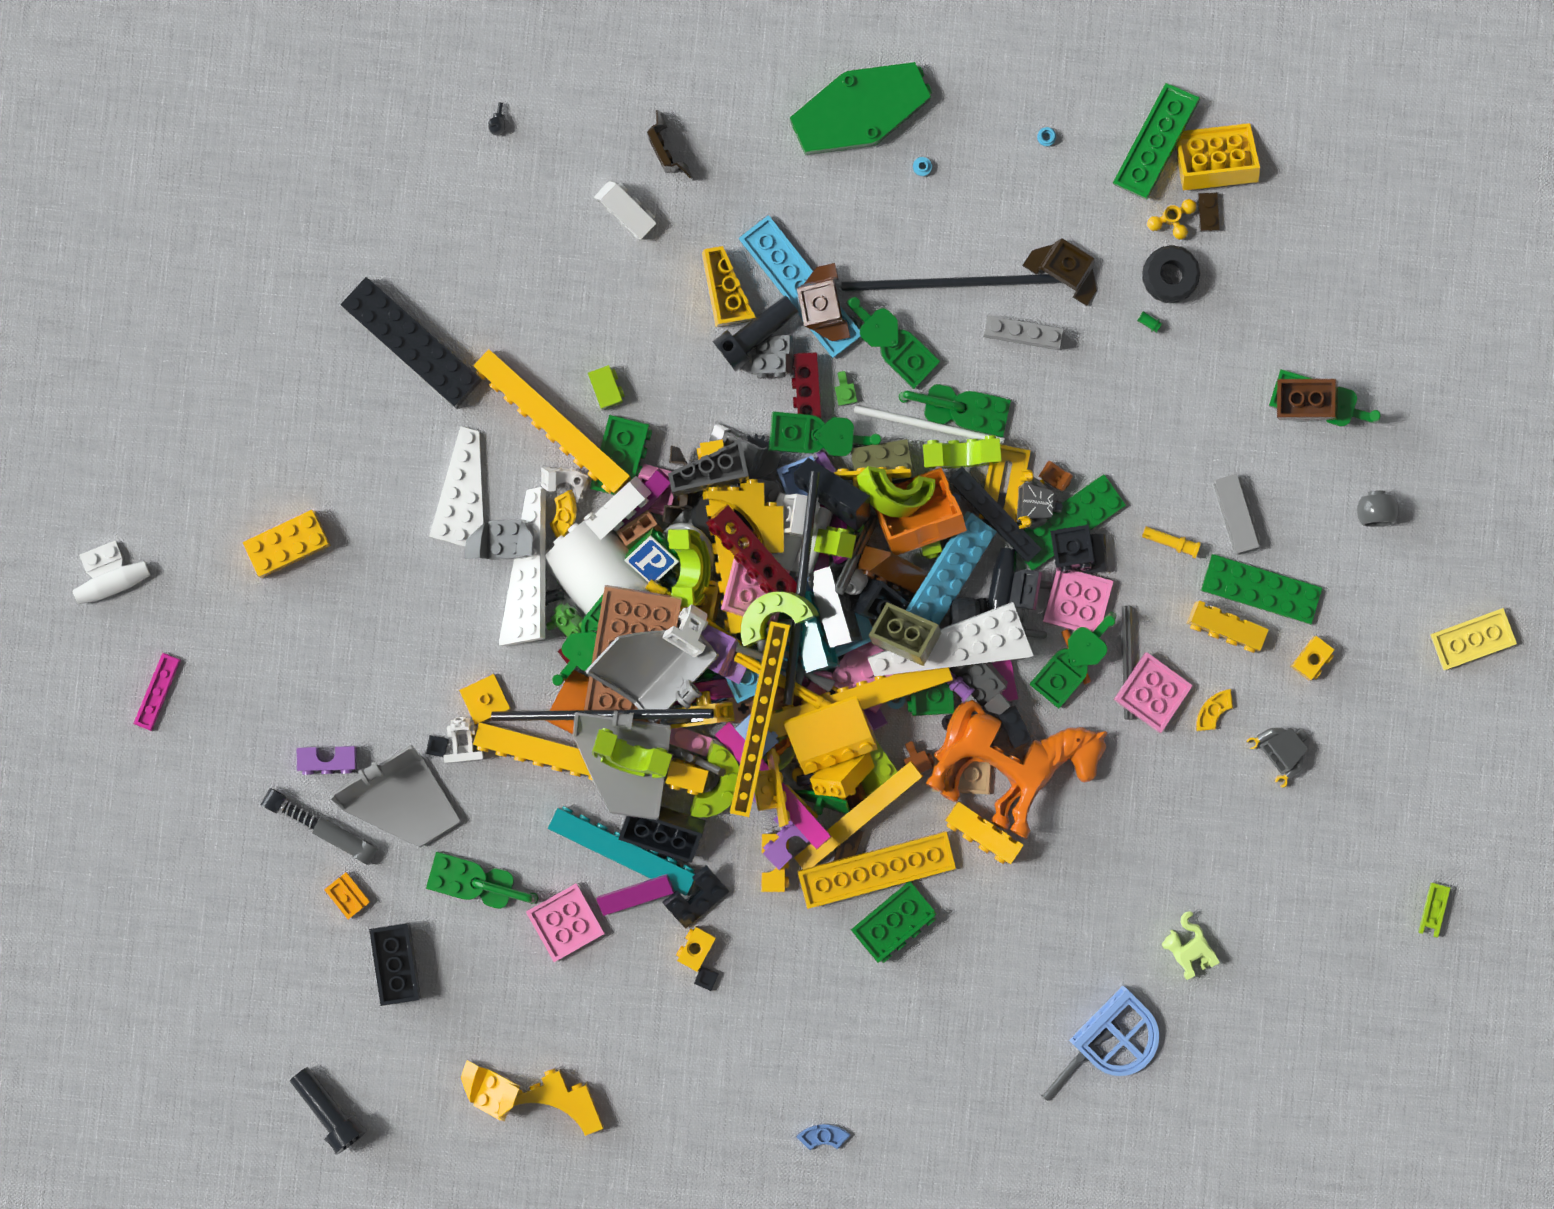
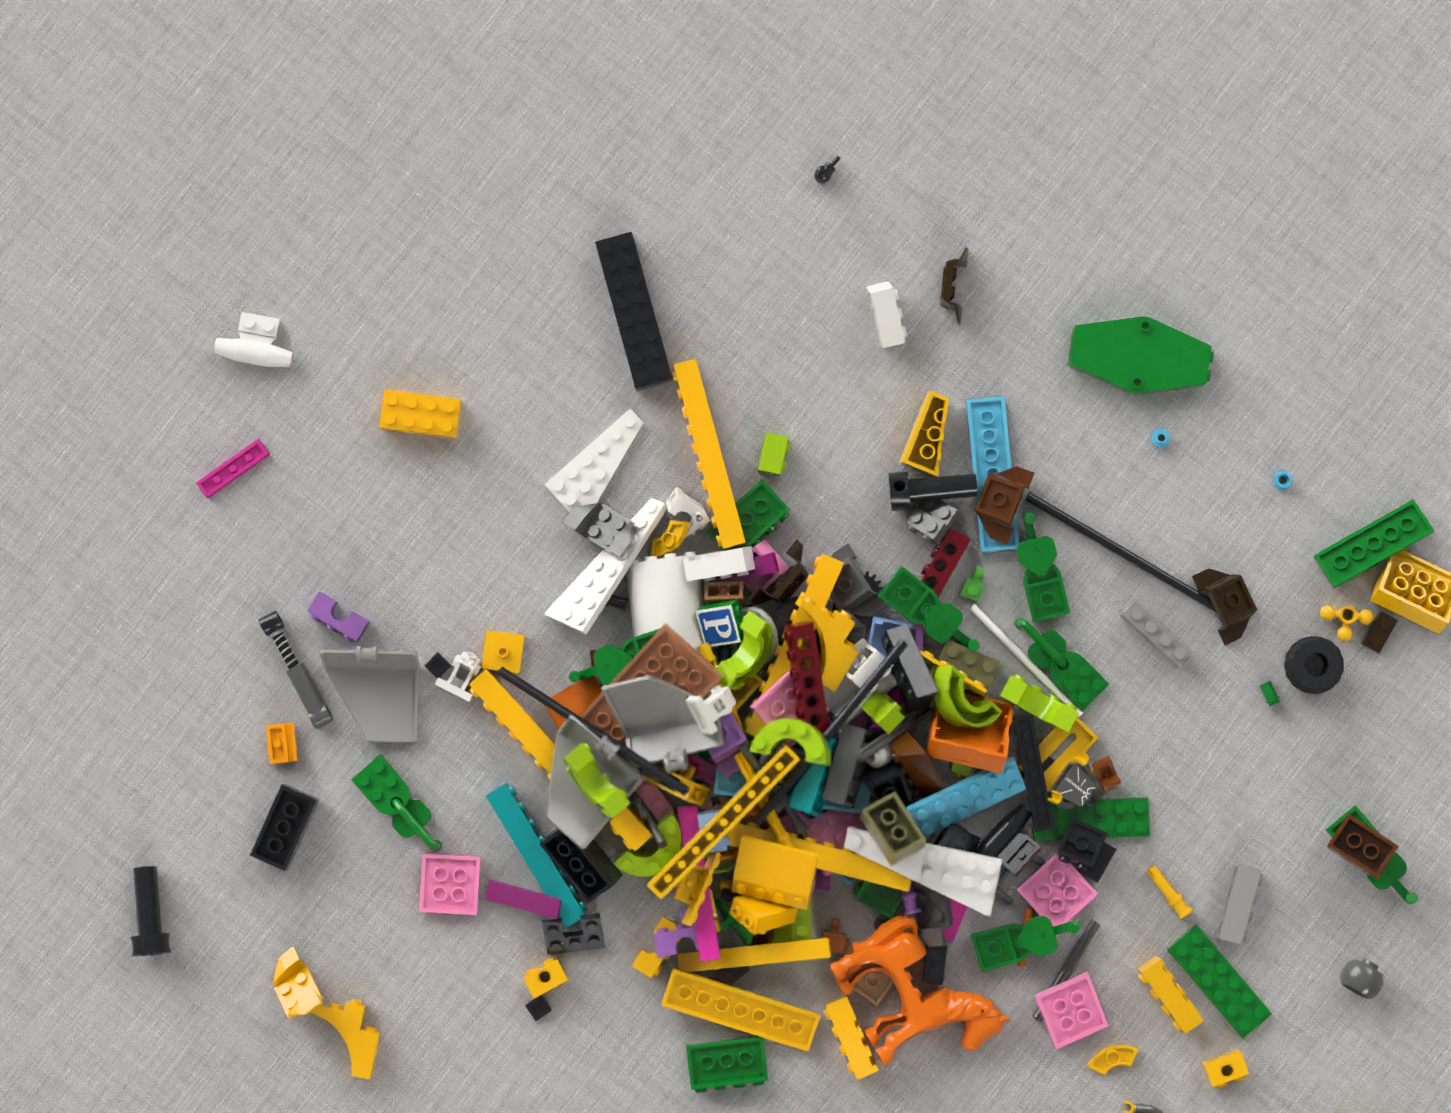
camera: 30 degrees right, 0 degrees up
(566, 620) = (614, 629): bright green brick -> none
(713, 470) = (818, 584): dark grey wedge -> none

